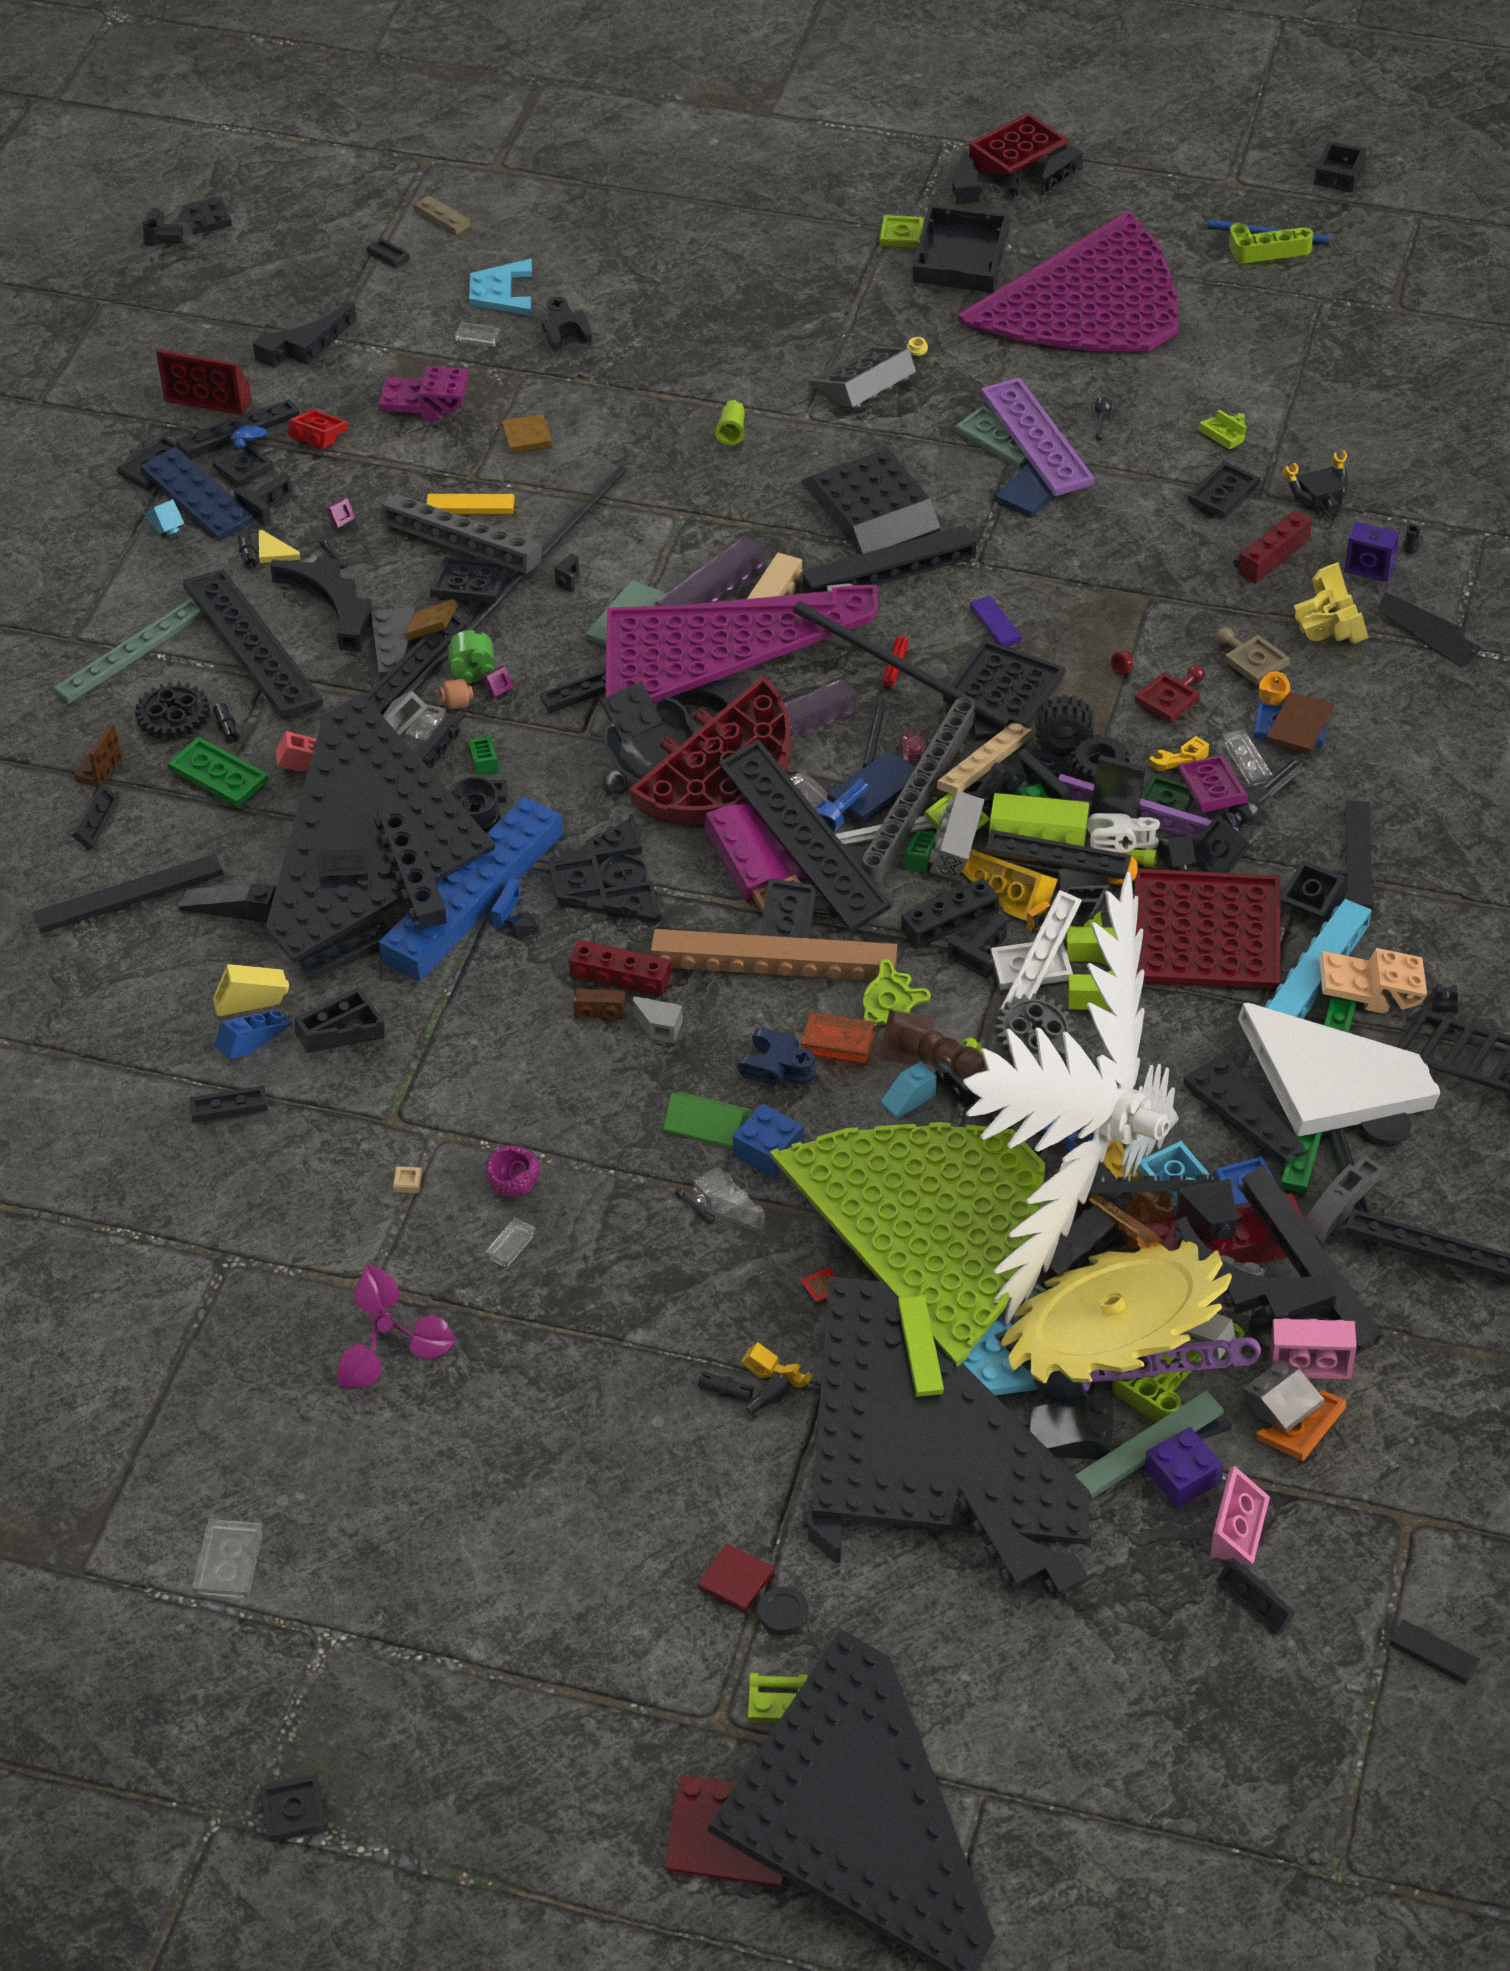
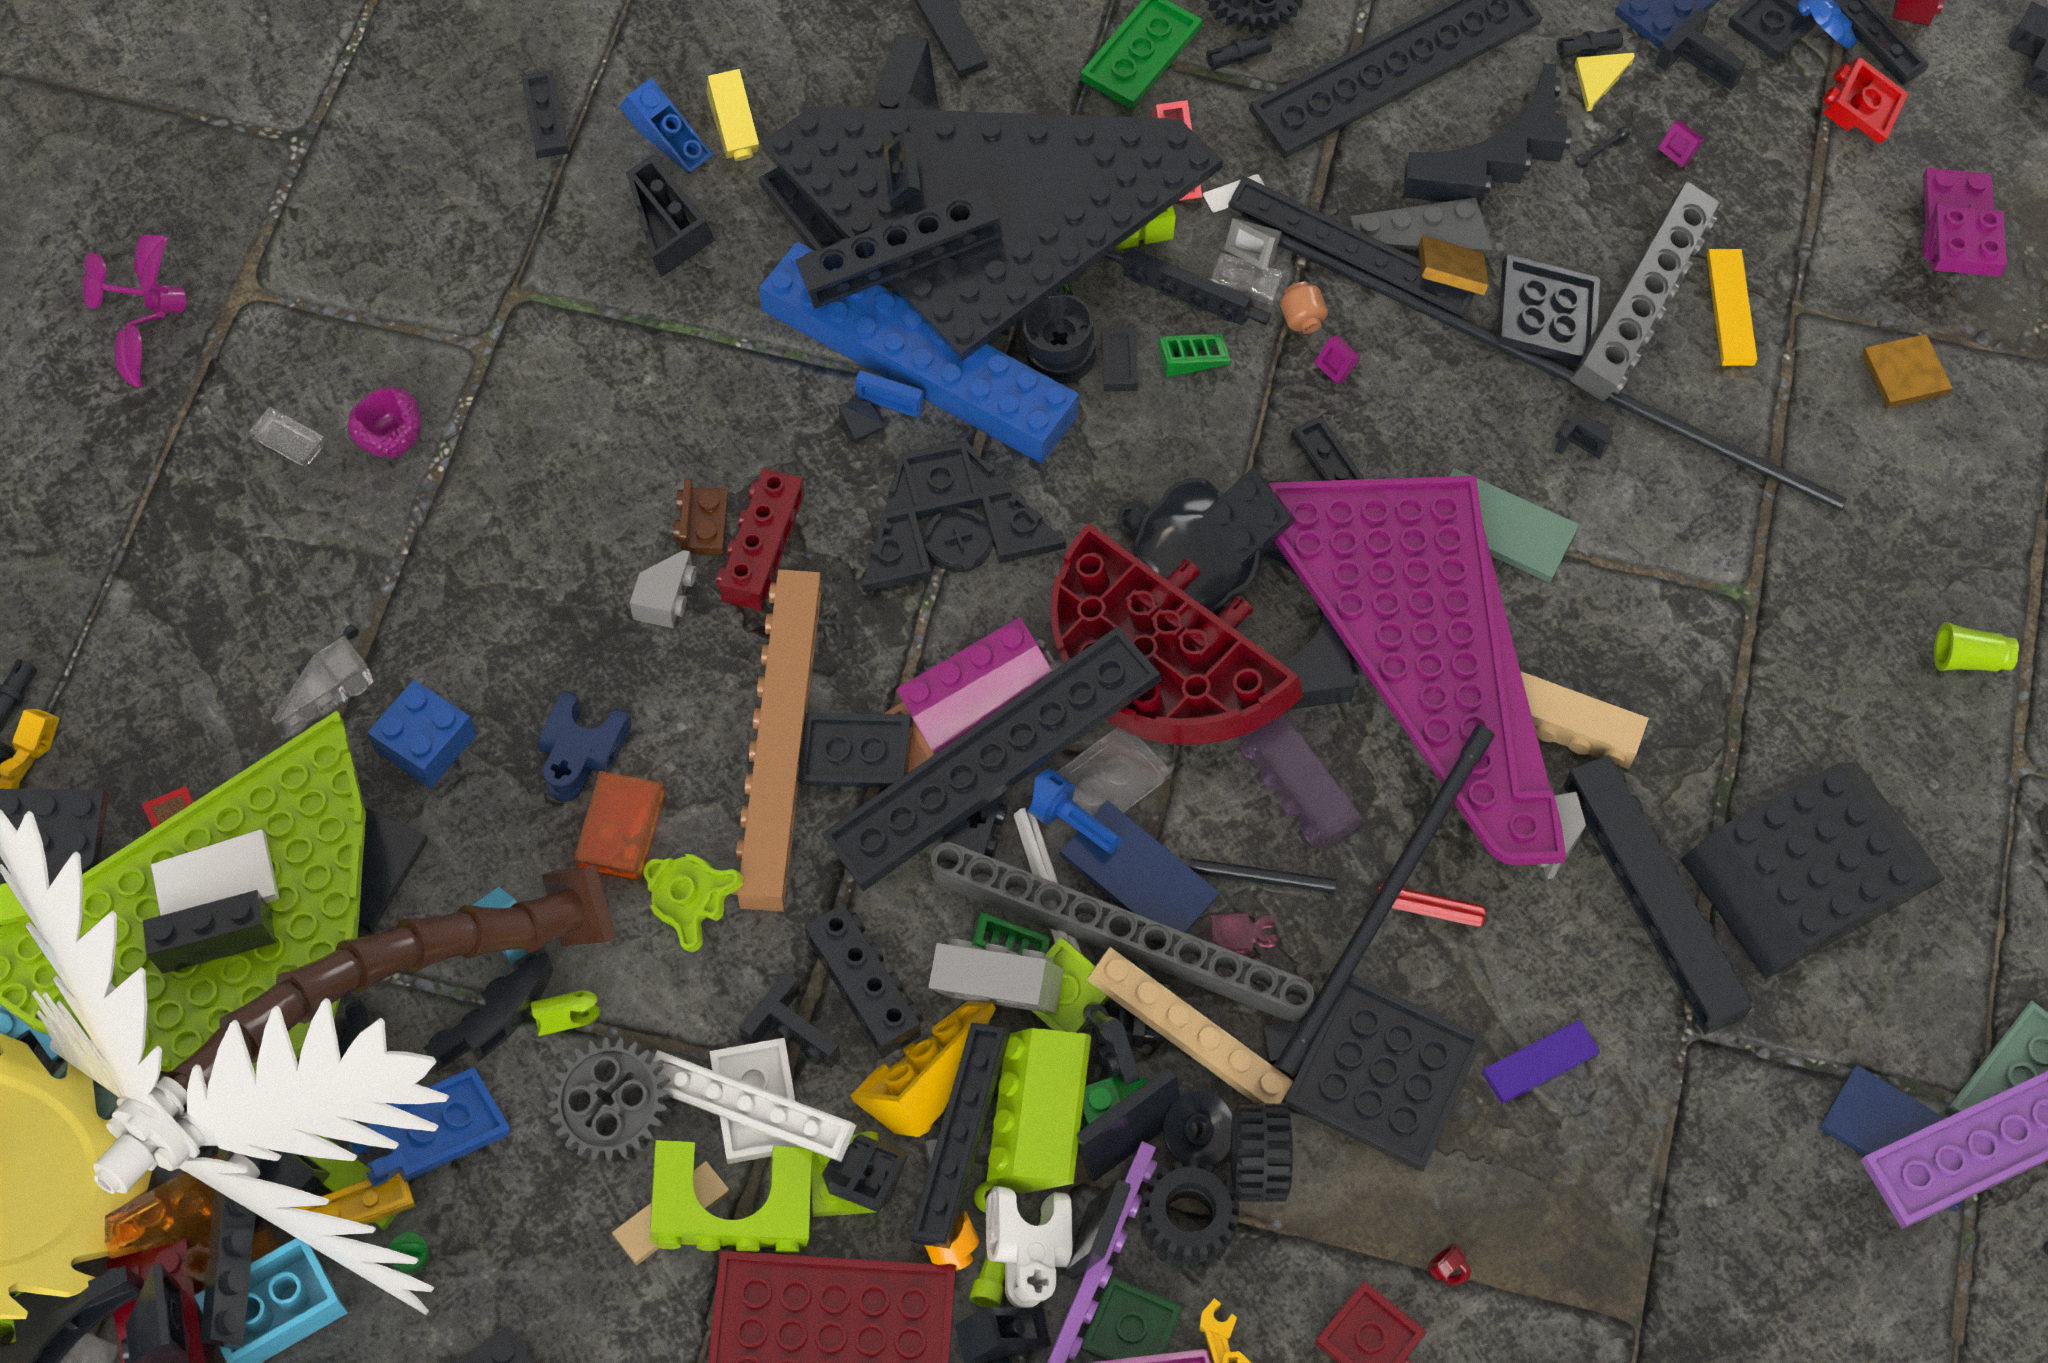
camera: 85 degrees right, 15 degrees up
(407, 1179) = (407, 317): tan tile -> none
(470, 656) = (1371, 316): bright green brick -> none
(704, 1119) = (485, 660): bright green slope -> none
(718, 574) = (1586, 633): clear purple brick -> none
(903, 1201) = (216, 873): none -> white tile
(945, 1190) = (209, 931): none -> black brick
(1037, 915) = (853, 1110): light orange tile -> none

